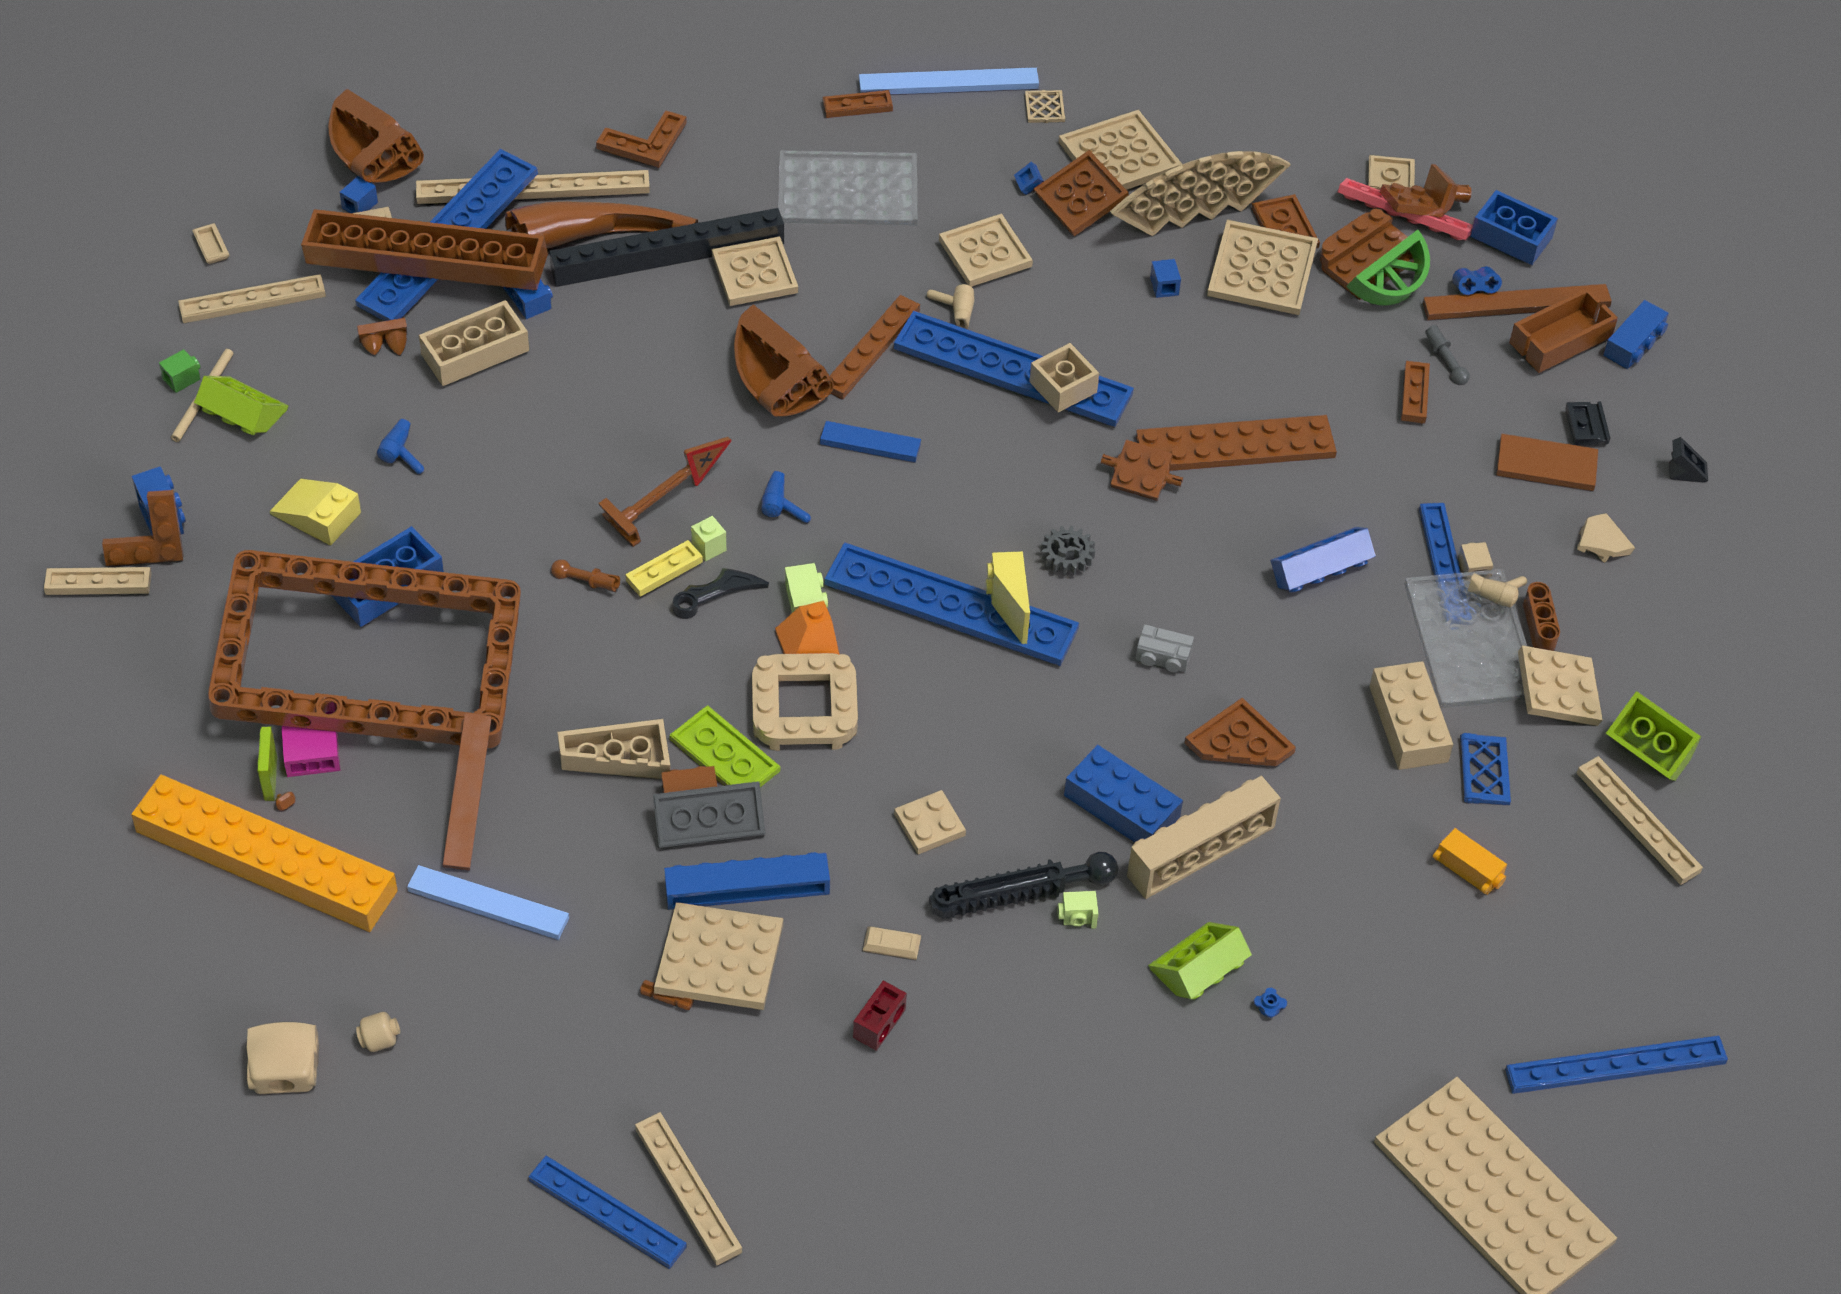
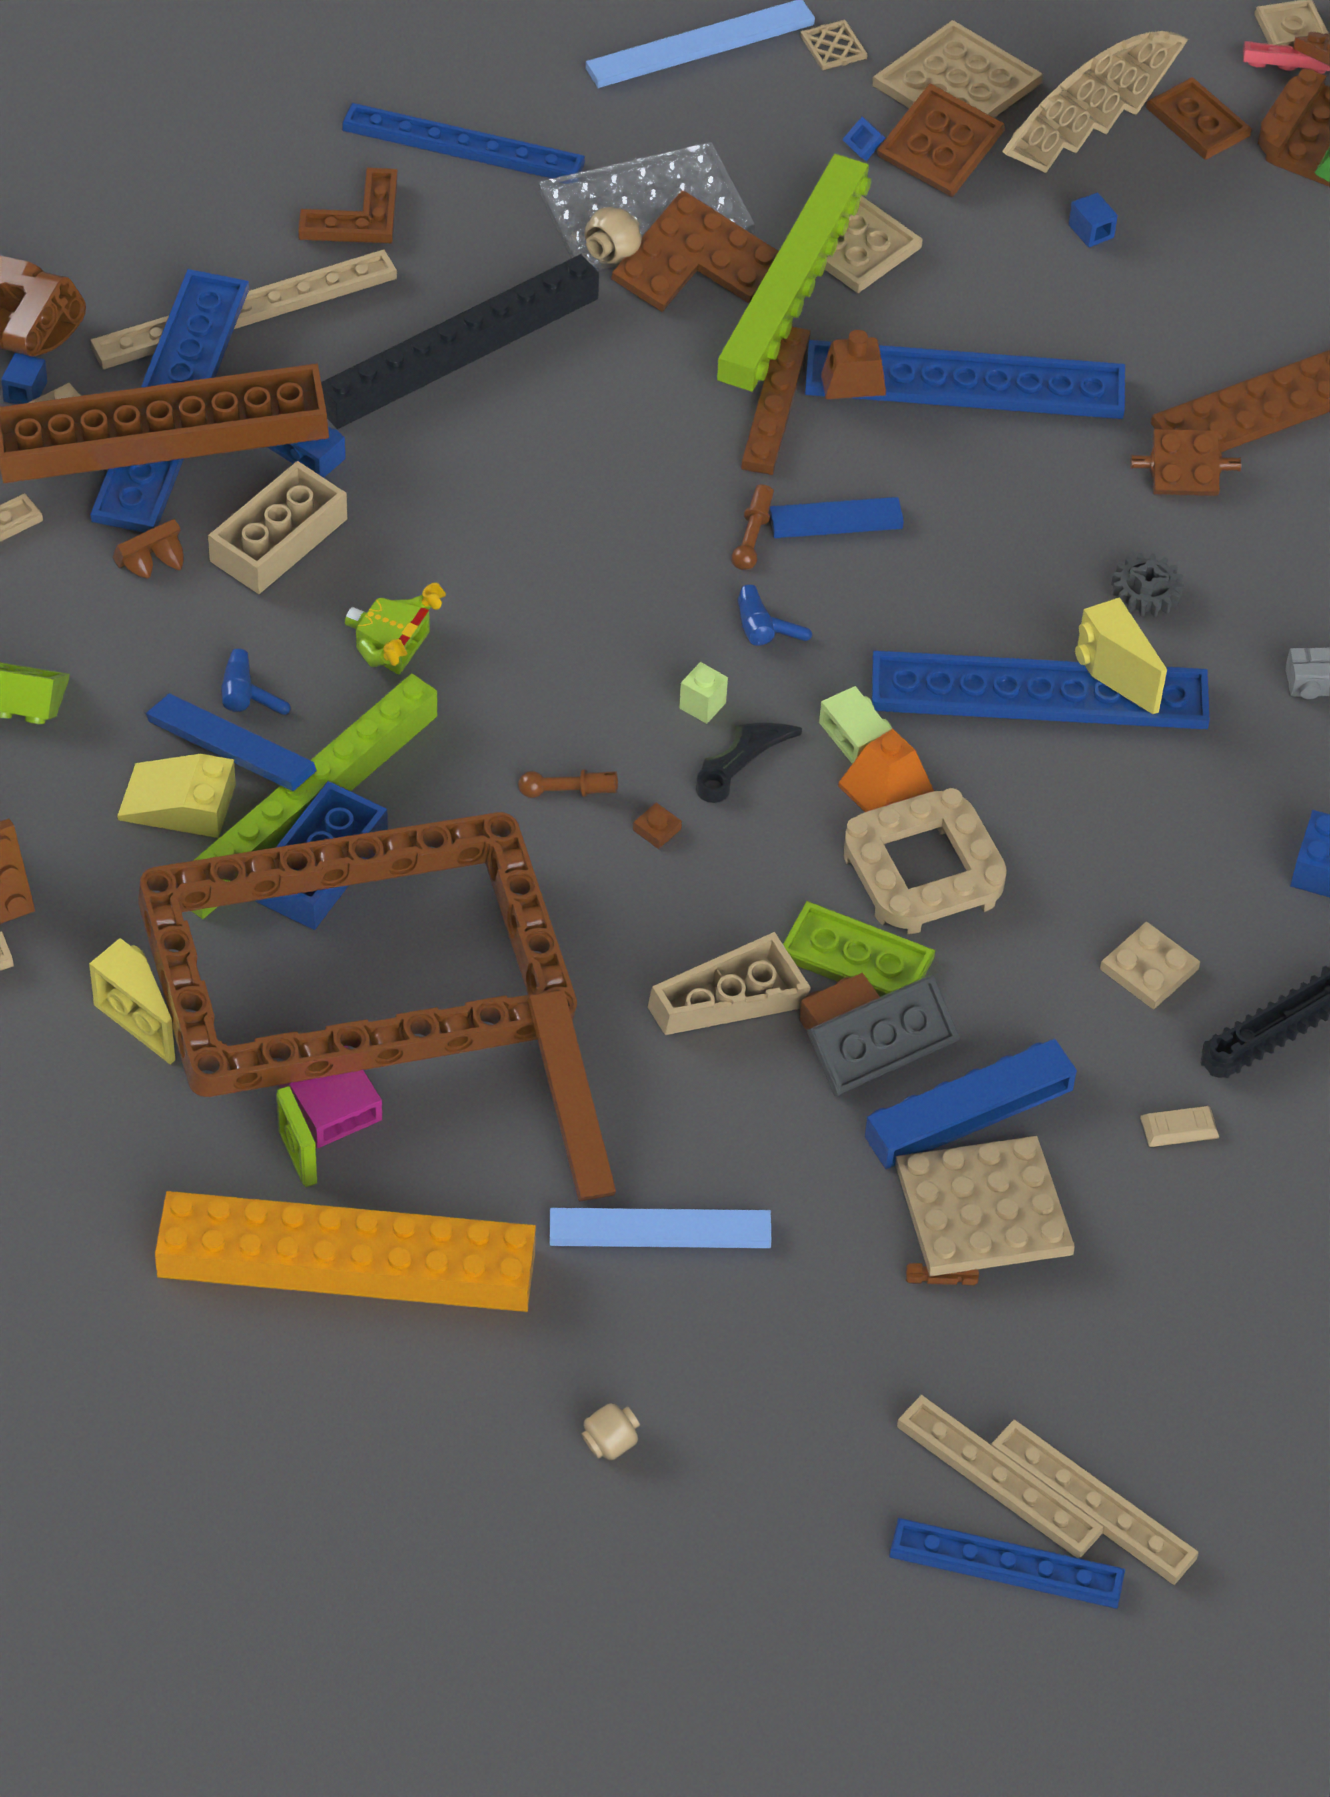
camera: 20 degrees left, 0 degrees up
(204, 625) = (130, 997): none -> light yellow slope
(282, 1057) = (508, 1501): tan piece -> none
(285, 800) = (333, 1178): dark orange rock -> none
(364, 481) = (231, 742): none -> blue tile
(429, 519) = (342, 762): none -> lime brick
(518, 435) = (394, 628): none -> lime torso
(576, 220) = (339, 331): dark orange brick -> none
(631, 1150) = (1000, 1477): none -> tan plate
(632, 622) = (657, 825): none -> dark orange plate
(664, 568) = (664, 746): light yellow plate -> none
(699, 462) = (583, 700): dark orange piece -> none
(744, 109) = (461, 142): none -> blue tile
(754, 271) = (584, 342): tan plate -> none
(777, 366) = (681, 451): dark orange panel -> none
(792, 451) = (744, 556): none -> dark orange pin
(808, 199) = (612, 232): none -> tan plant
(857, 104) = (601, 99): dark orange tile -> none
(867, 218) = (691, 239): none -> dark orange plate
(879, 1015) = (1219, 1217): dark red brick -> none
(922, 259) = (793, 273): none -> lime brick
(929, 338) = (853, 368): none -> dark orange torso
(961, 301) = (860, 311): tan piece -> none
(1064, 377) = (1044, 372): tan brick -> none
(1262, 267) = (1202, 176): tan plate -> none

